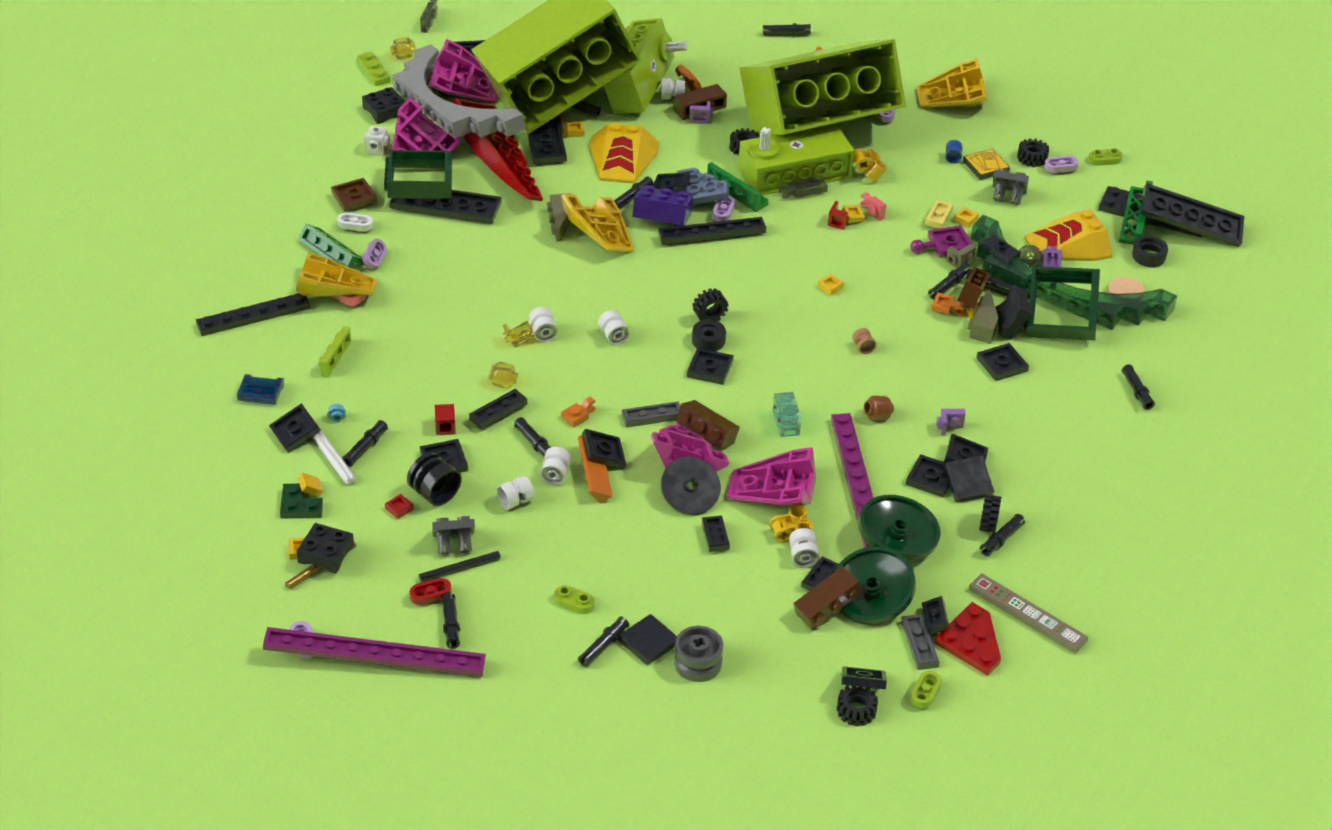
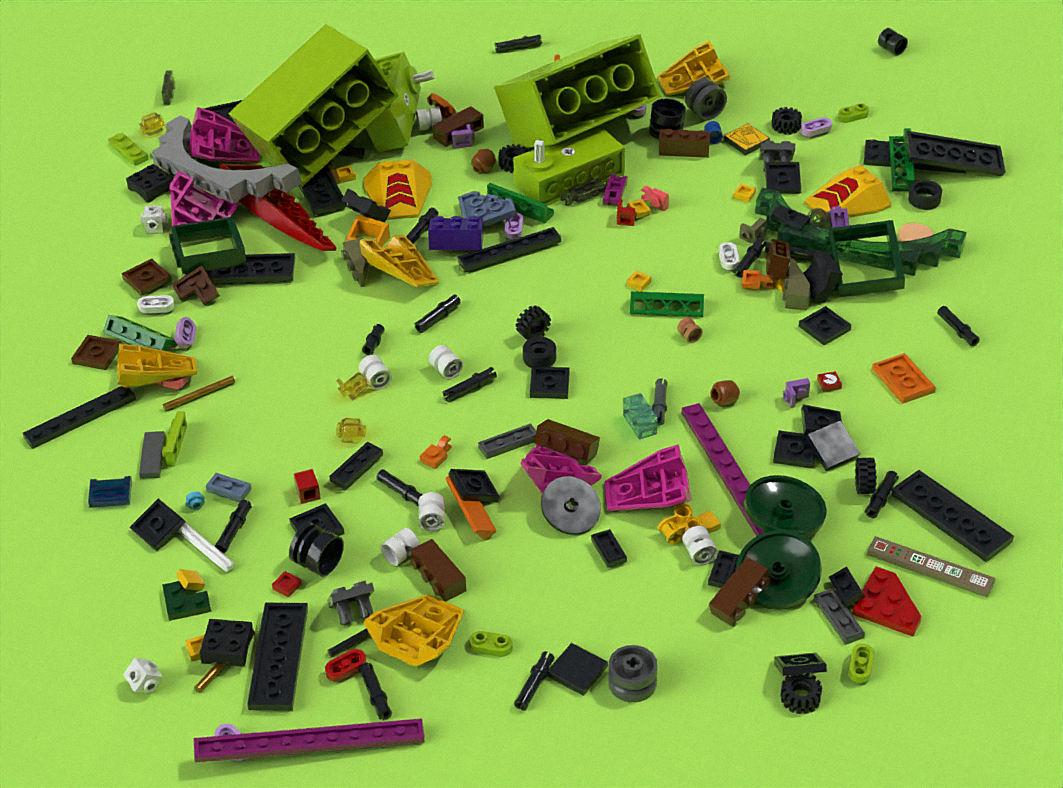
camera: 10 degrees left, 0 degrees up
(239, 562) = (143, 676): none -> white brick
(285, 257) = (96, 352): none -> reddish brown tile
(308, 364) = (152, 454): none -> dark grey tile
(370, 313) = (198, 393): none -> pearl gold bar
(370, 570) = (278, 656): none -> black plate
(371, 406) = (228, 487): none -> sand blue plate
(400, 208) = (198, 282): none -> reddish brown plate
(505, 570) = (415, 629): none -> yellow wedge
(544, 521) = (438, 570): none -> reddish brown brick
(551, 293) = (373, 339): none -> black pin
(582, 164) = (365, 206): none -> black brick
(582, 185) = (370, 228): none -> light orange tile
(628, 276) = (442, 309): none -> black pin
(639, 350) = (475, 381): none -> black pin
(674, 181) = (459, 207): black tile -> none
(713, 140) = (483, 161): none -> dark orange head
(810, 408) = (659, 406): none -> dark grey pin
(822, 528) = (710, 522): none -> yellow tile
(836, 190) = (614, 188): none -> magenta plate
(854, 306) = (667, 298): none -> green fence
(869, 163) = (640, 158): yellow piece -> none
(909, 130) = (666, 114): none -> black wheel
(920, 157) = (684, 143): none -> reddish brown brick
(928, 276) = (728, 256): none -> white plate
(939, 214) = (719, 195): light yellow plate -> none
(940, 240) = (727, 219): magenta plate -> none
(955, 116) = (705, 99): none -> dark grey wheel
(988, 417) = (829, 381): none -> red tile
(1009, 208) = (783, 177): none -> black tile
(1064, 427) = (903, 378): none -> orange tile
(1066, 568) = (952, 515): none -> black plate
(1170, 91) = (892, 41): none -> black wheel

